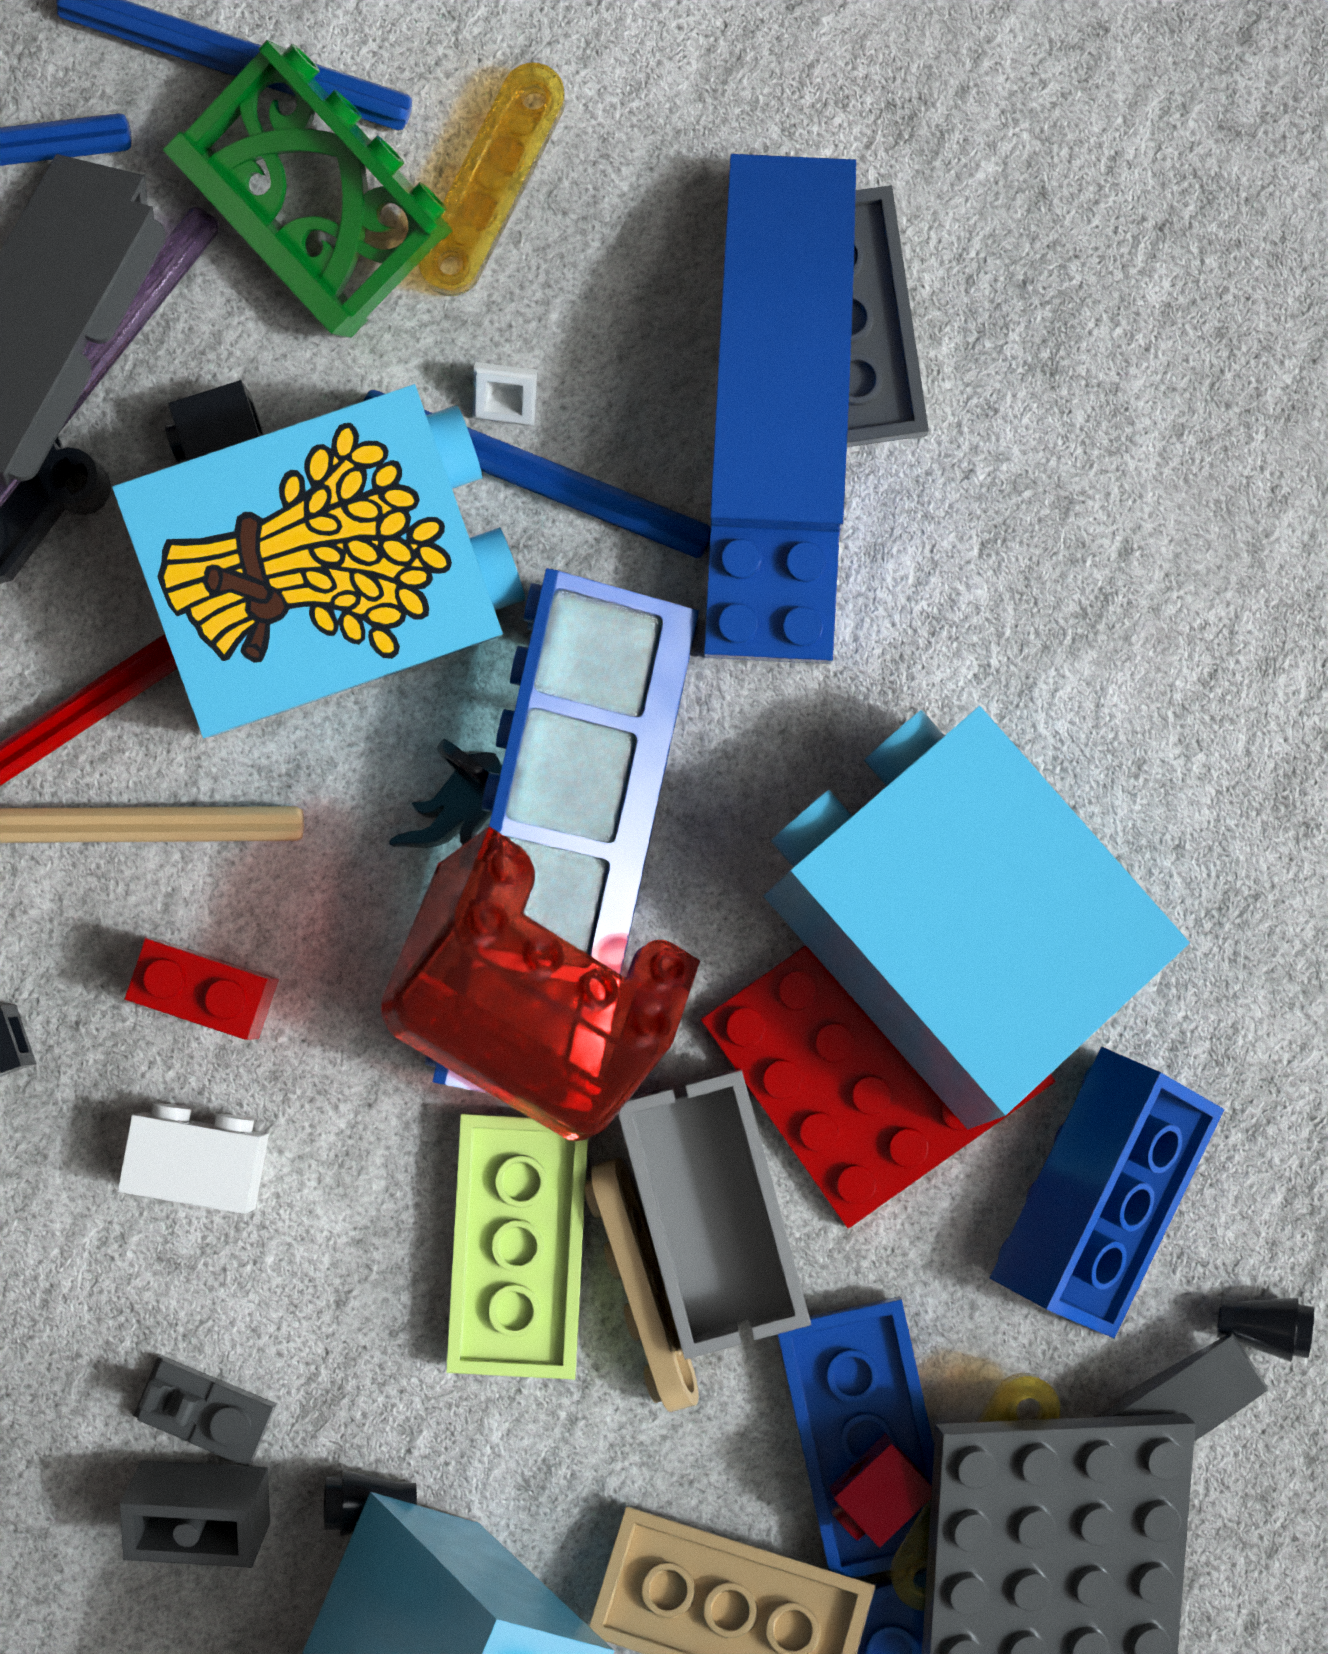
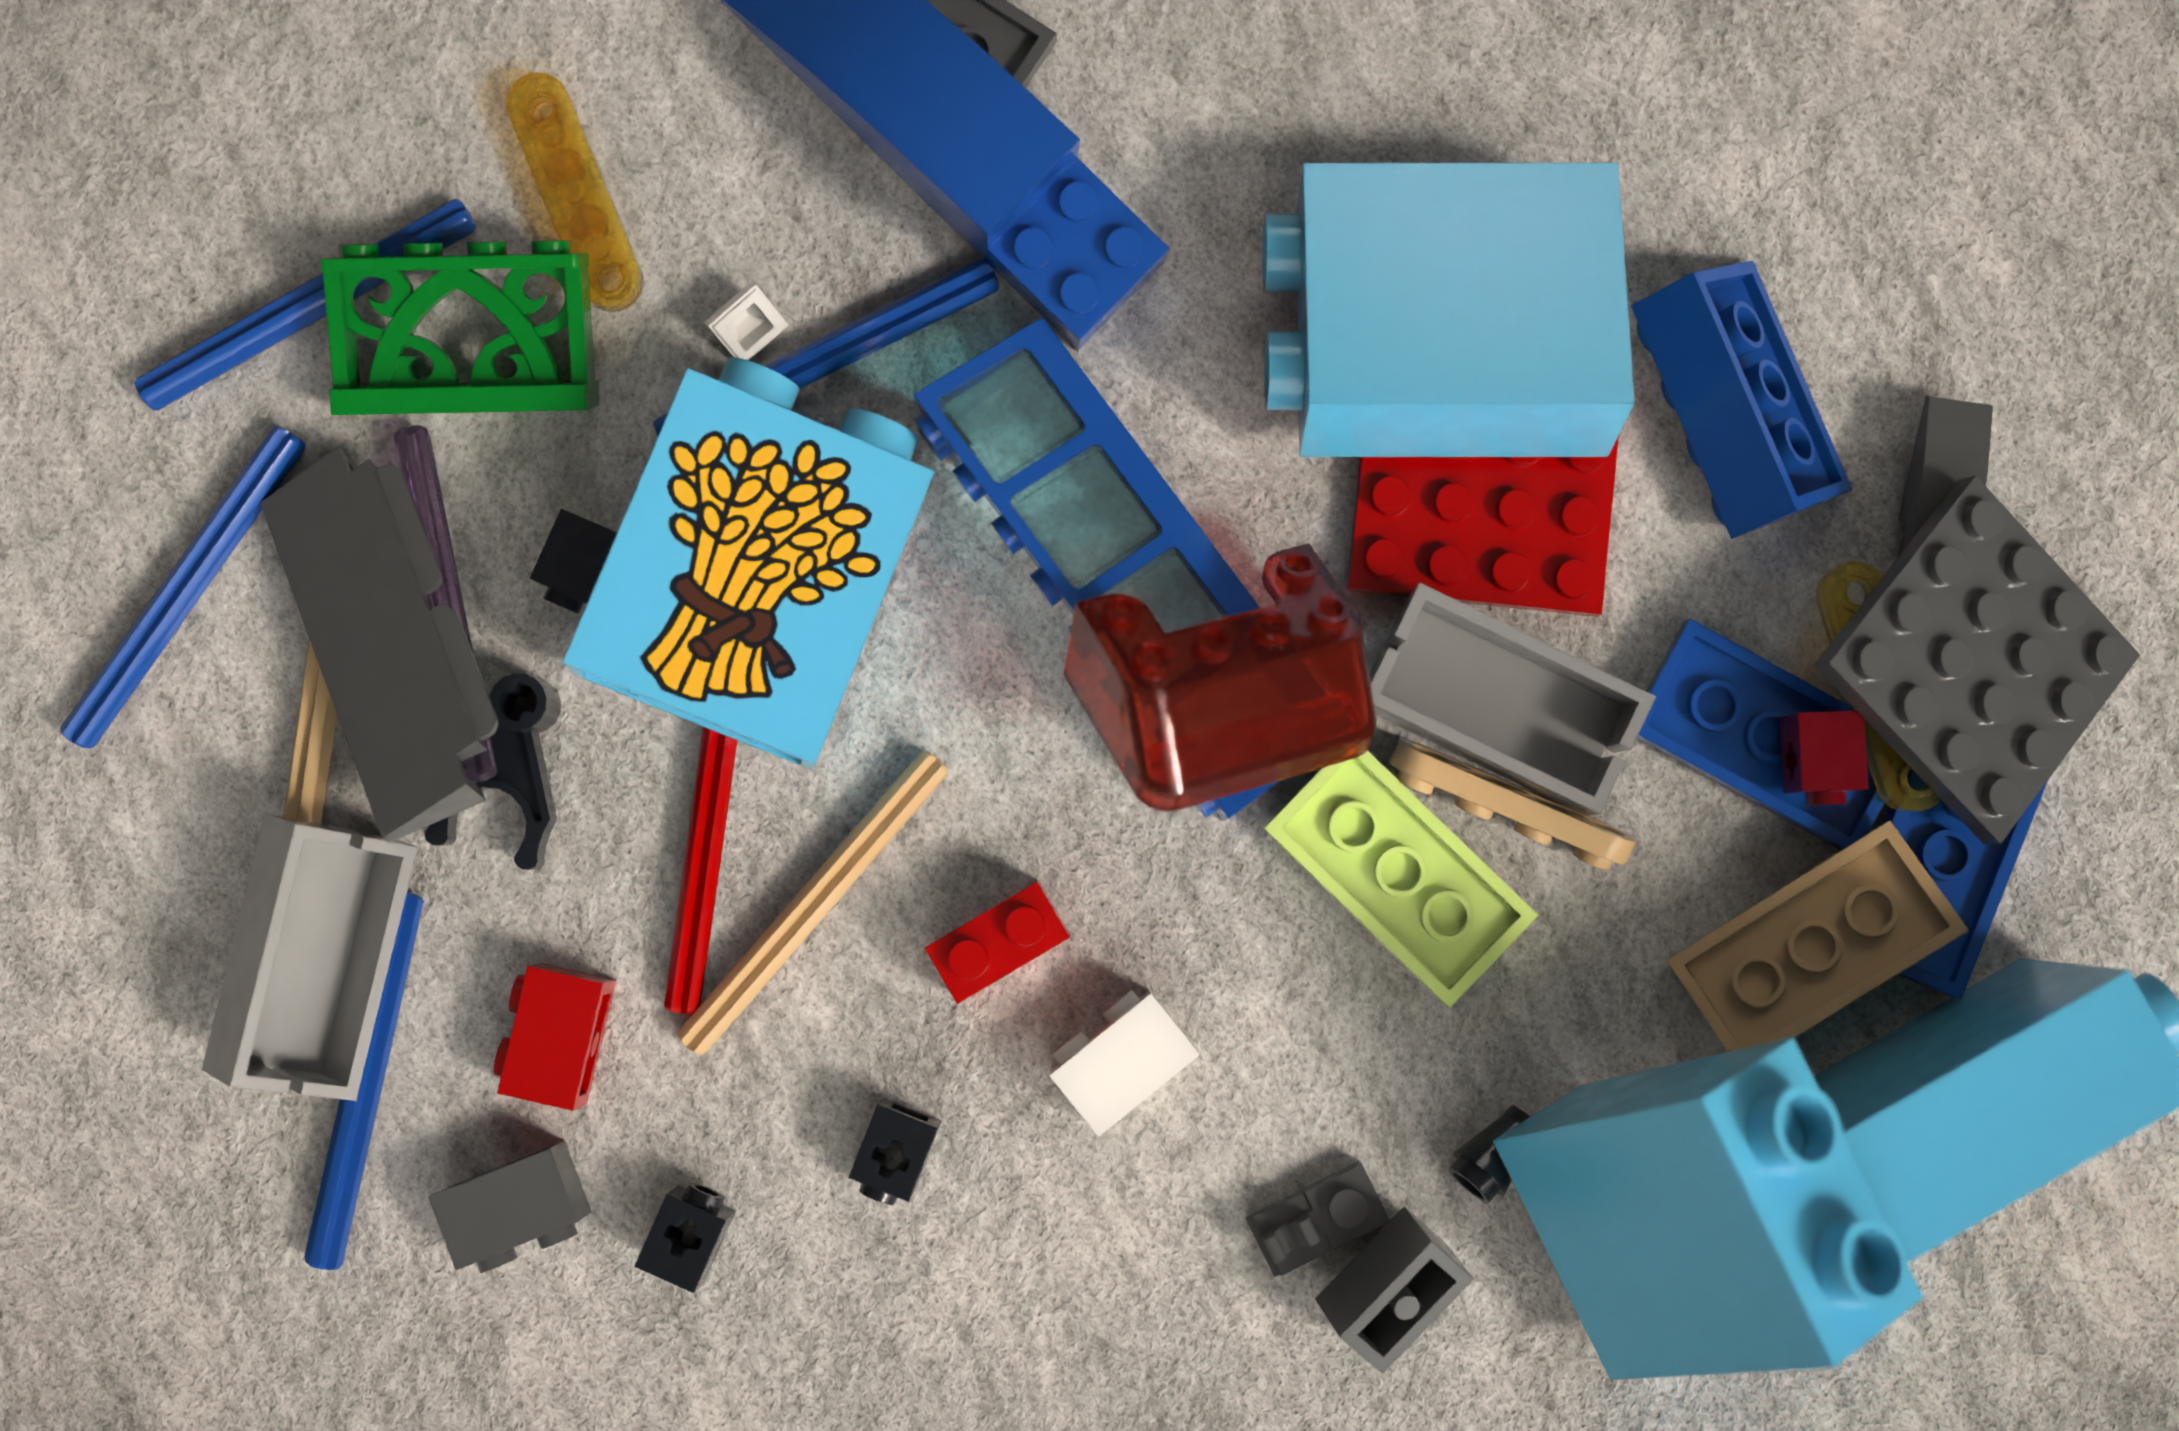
camera: 45 degrees left, 0 degrees up
(457, 802) = (1026, 625): black piece -> none
(1269, 1325) = (1945, 363): black cone -> none

